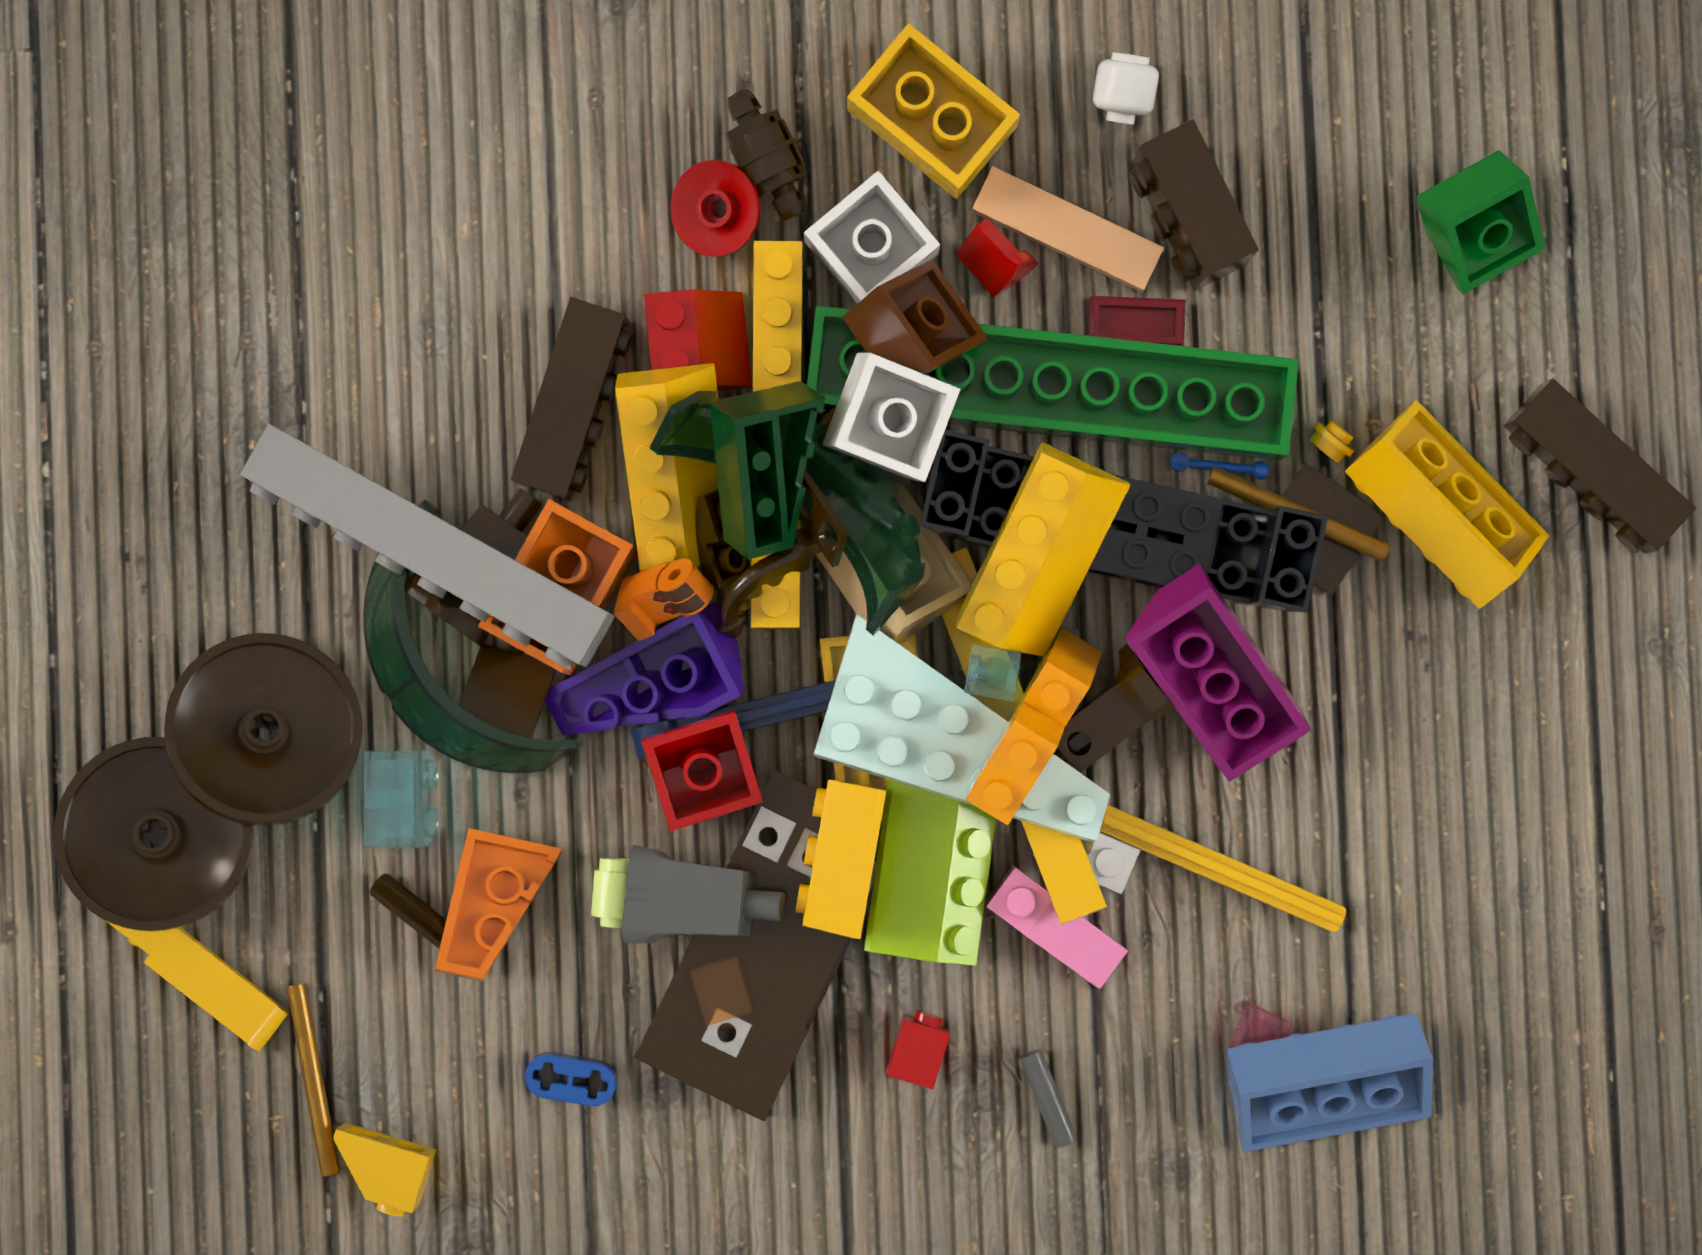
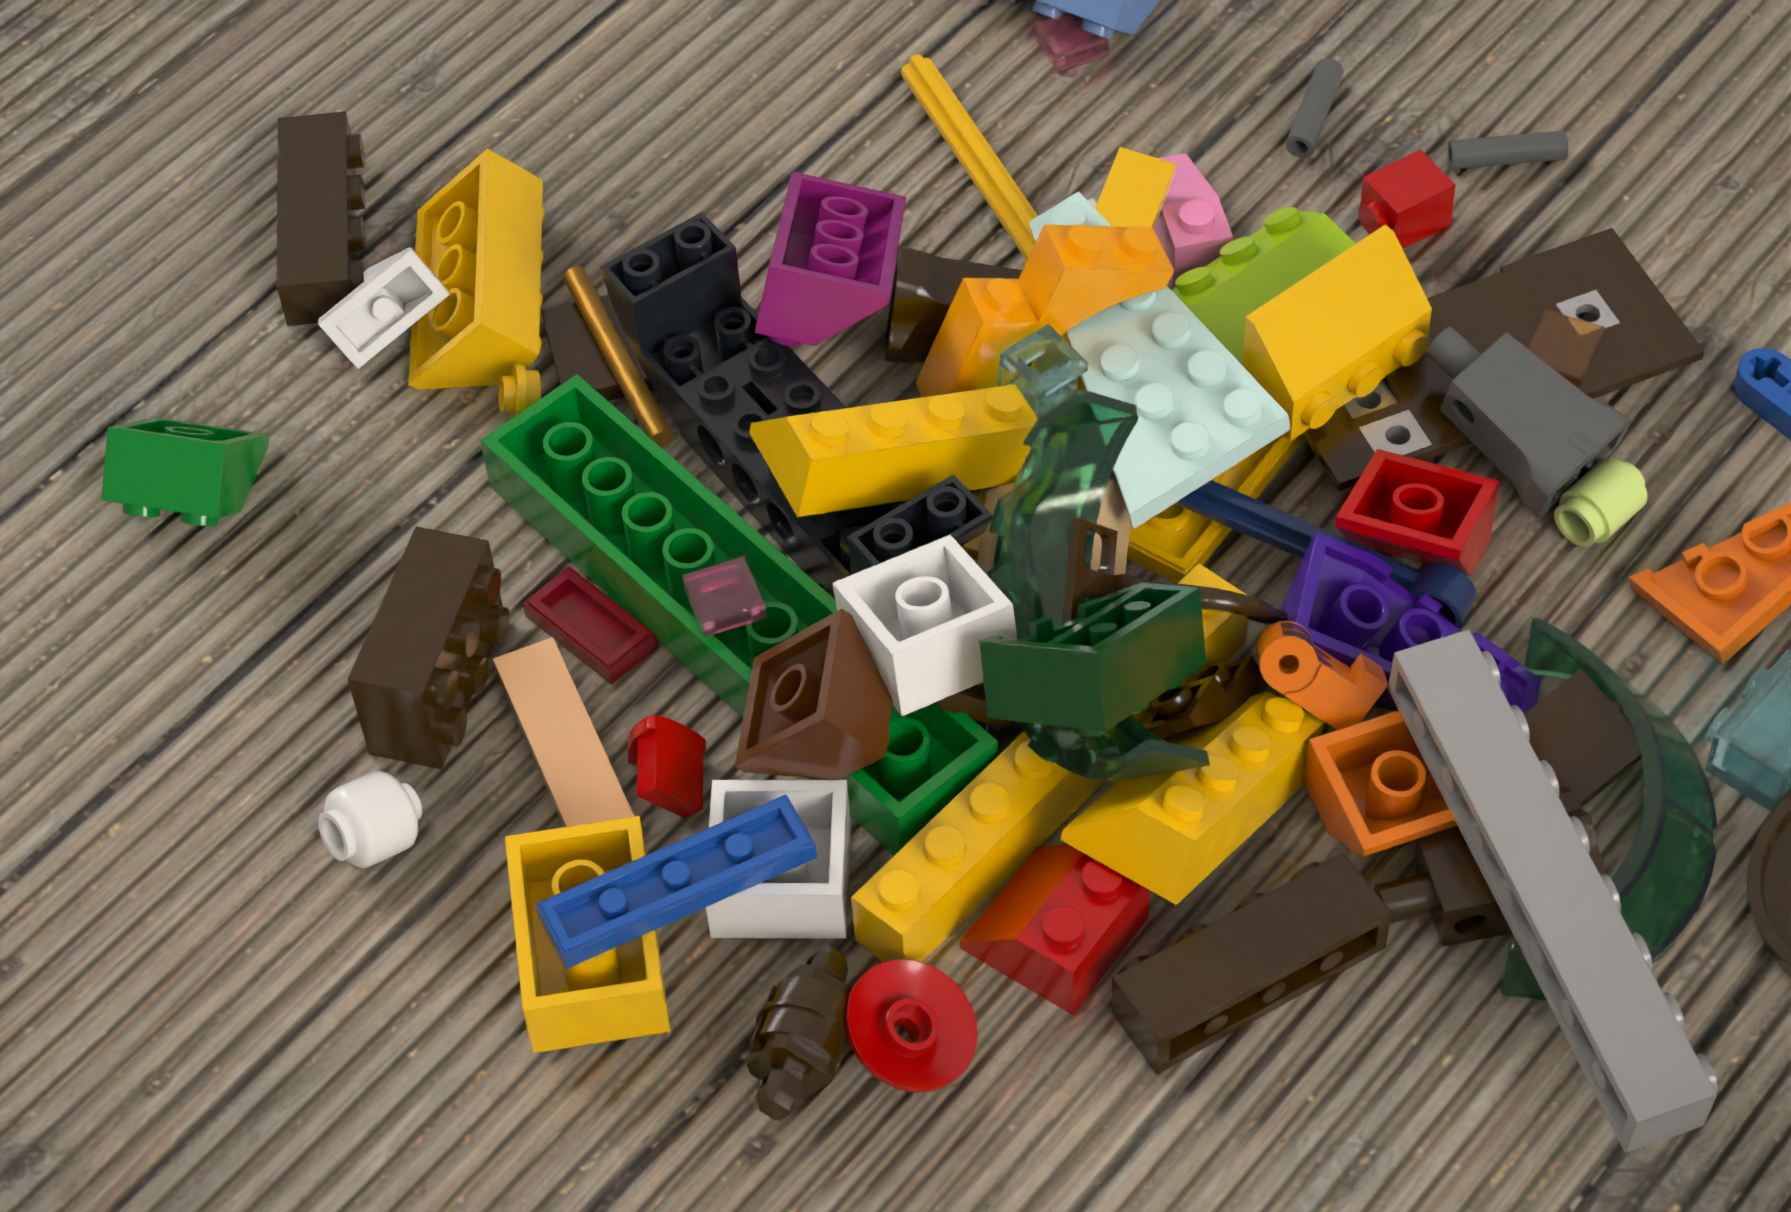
camera: 135 degrees left, 35 degrees down
(894, 1161) = (1507, 149): none -> dark grey piece
(896, 161) = (676, 881): none -> blue tile
(1041, 362) = (724, 596): none -> clear pink tile
(1474, 422) = (383, 306): none -> white slope

